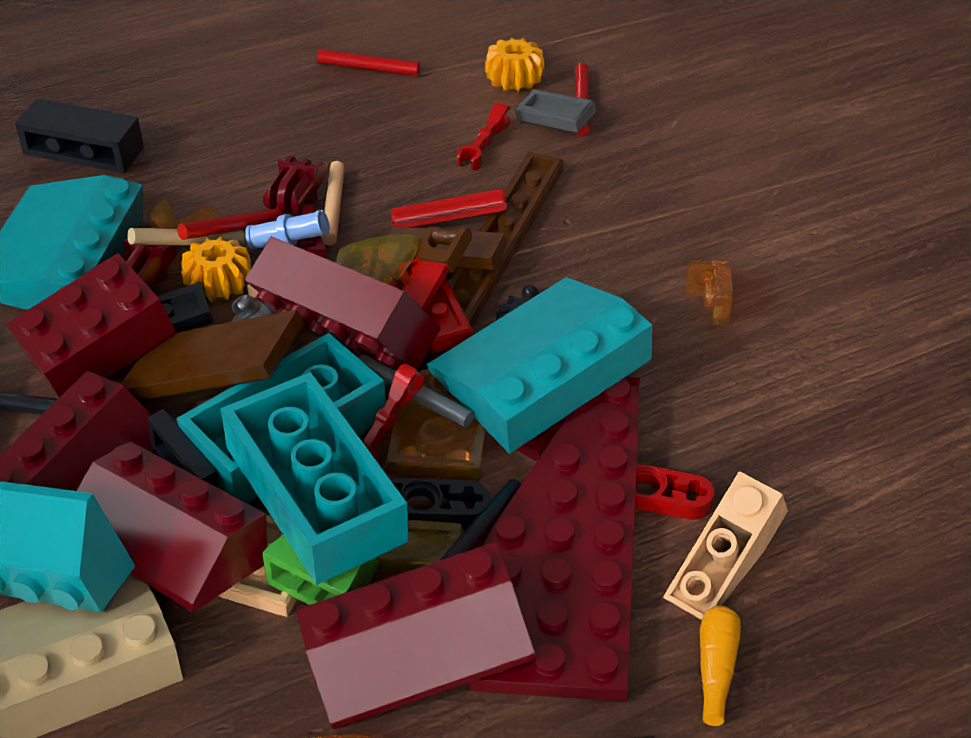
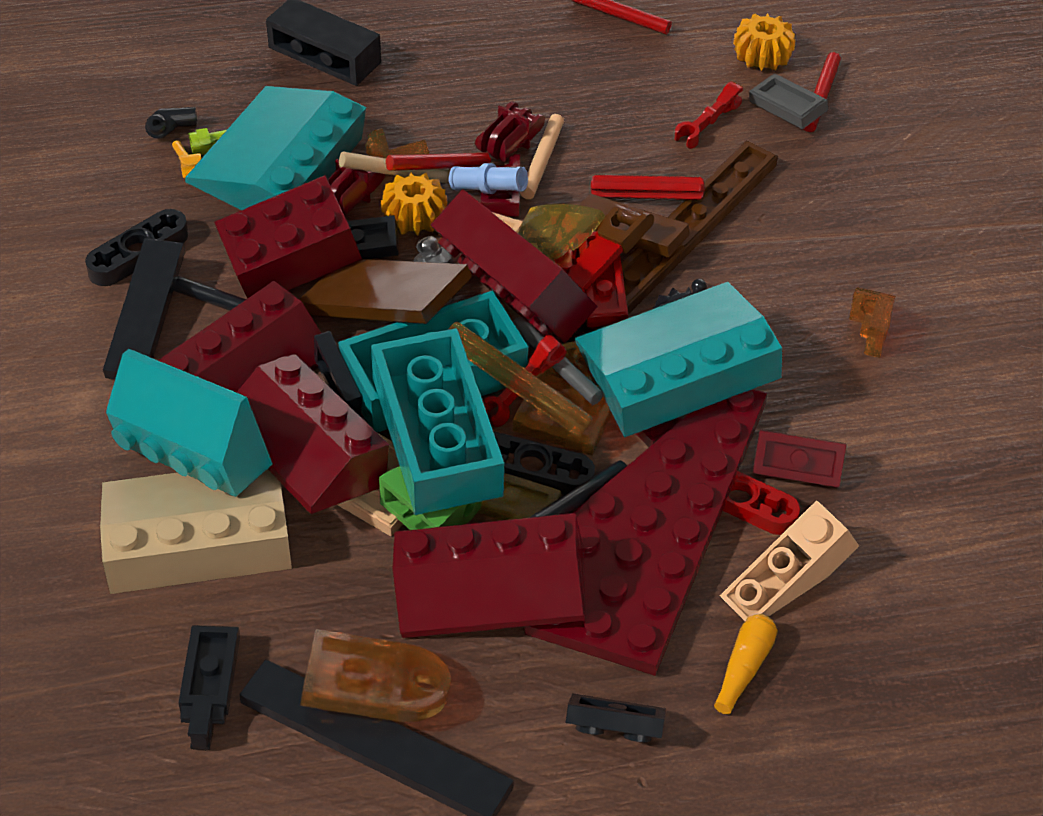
camera: 15 degrees right, 5 degrees up
(395, 420) = (523, 382): none -> clear orange axle
(693, 436) = (799, 458): none -> dark red plate

